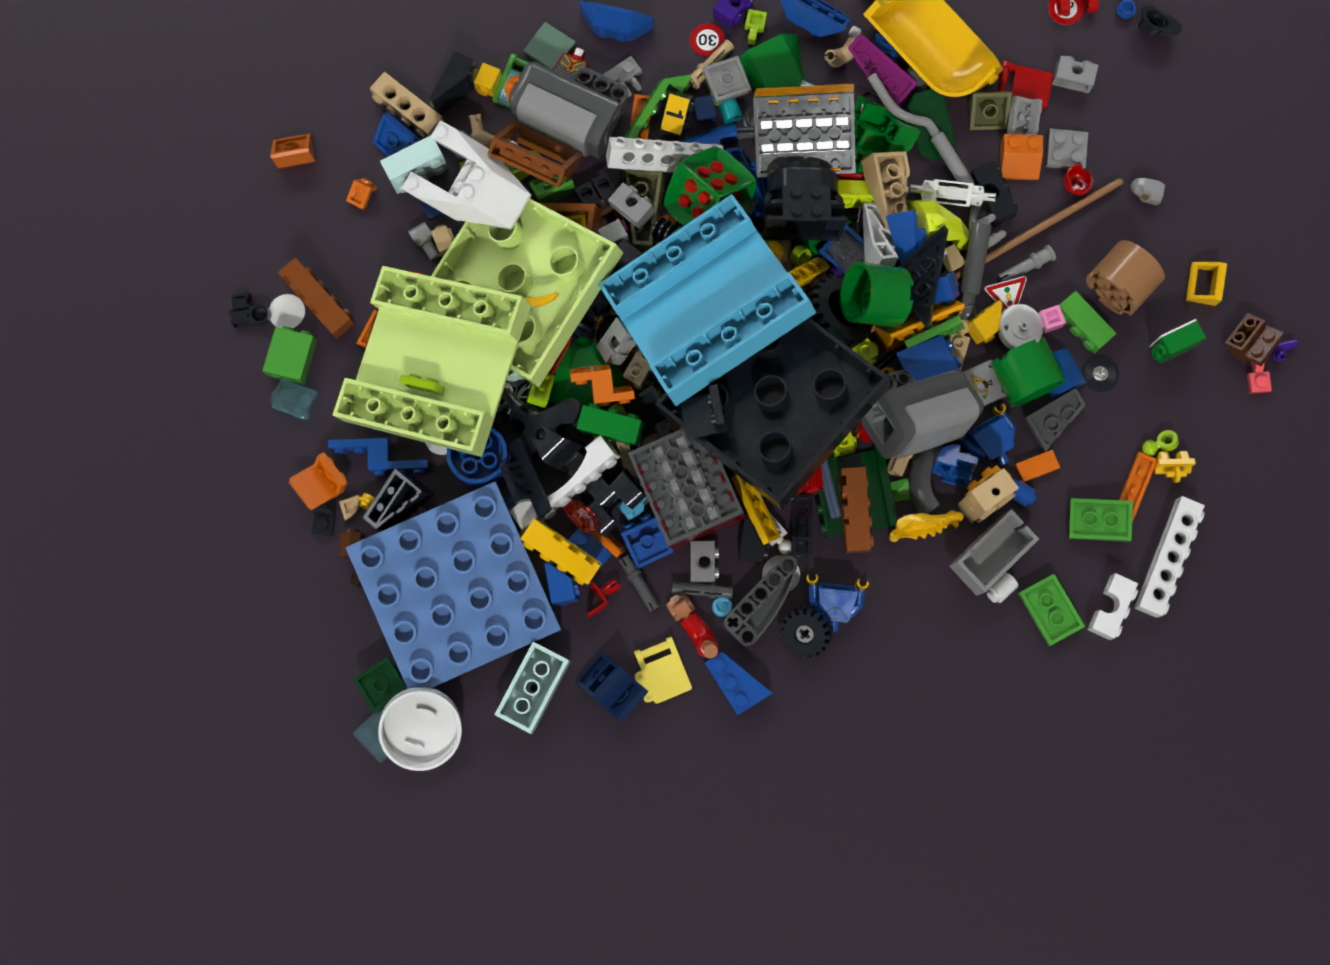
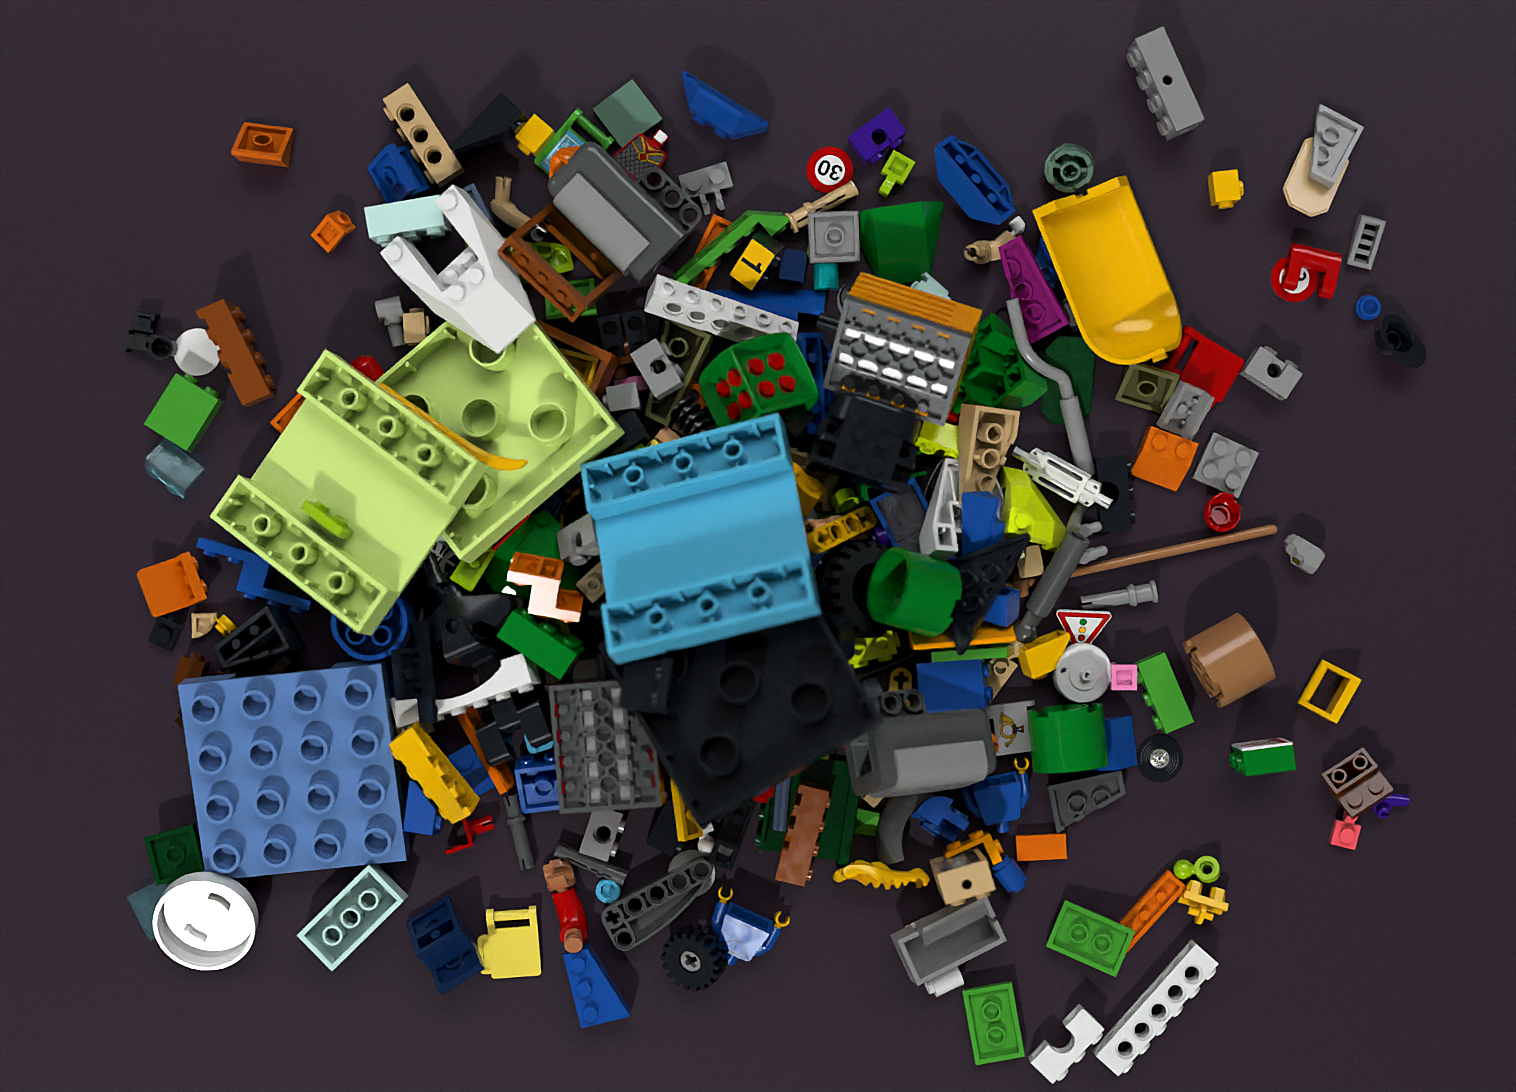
camera: 10 degrees right, 10 degrees up
(583, 514) = (473, 736): clear red beam -> none

